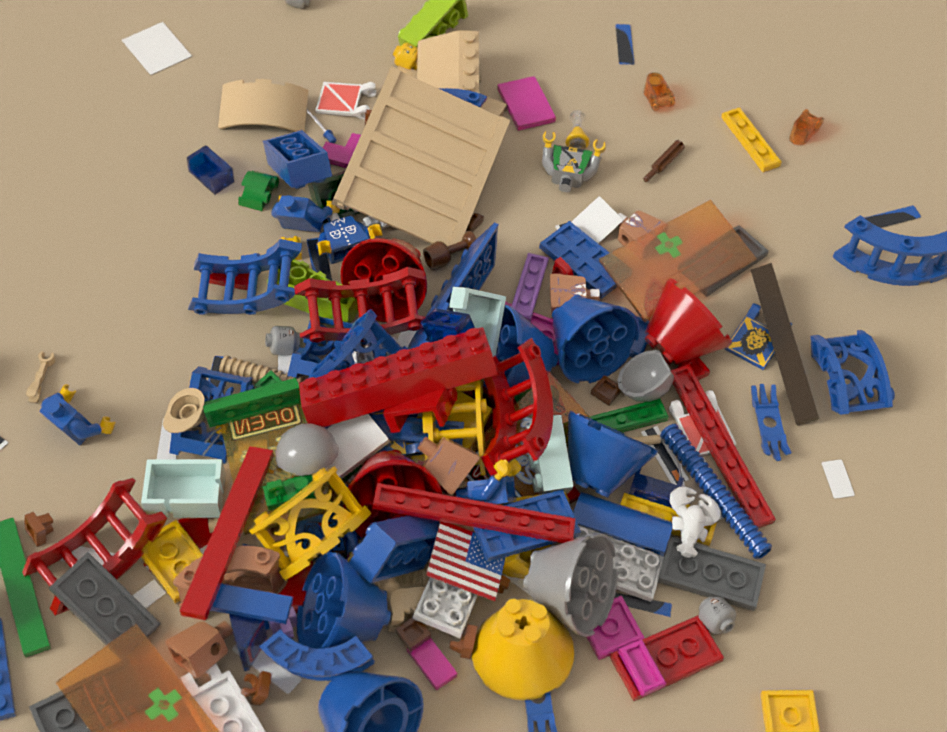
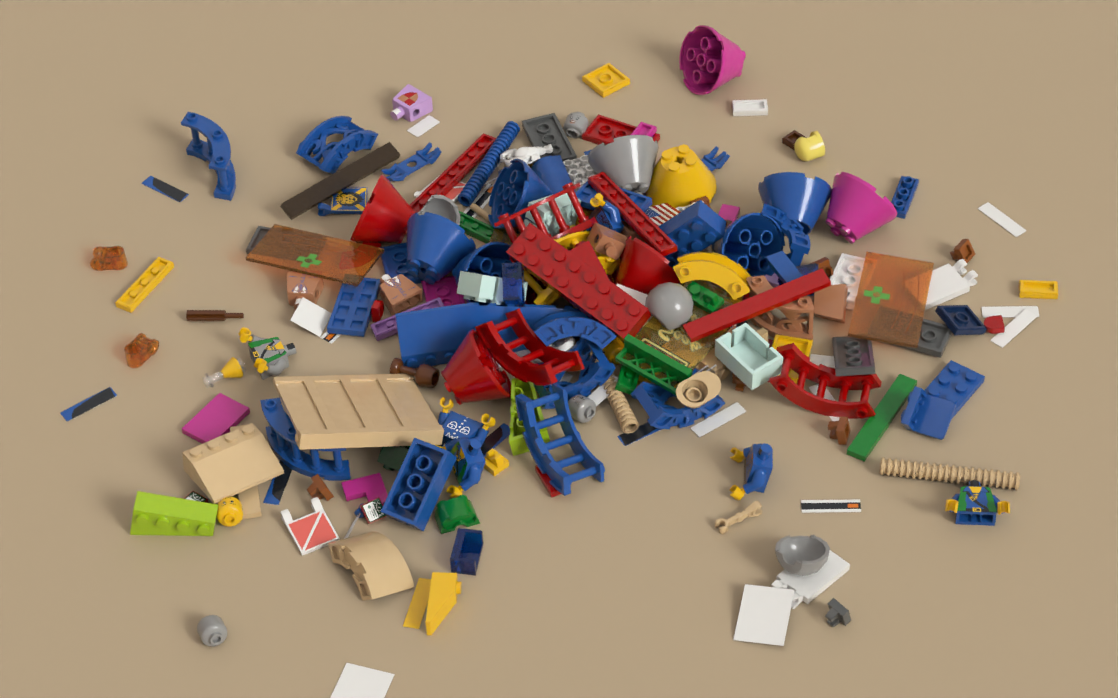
camera: 120 degrees left, 10 degrees down
(185, 131) = (442, 598): none -> yellow slope
(200, 123) = (418, 604): none -> yellow sticker
(320, 136) = (372, 509): none -> tile
(880, 478) = (411, 104): none -> lavender torso

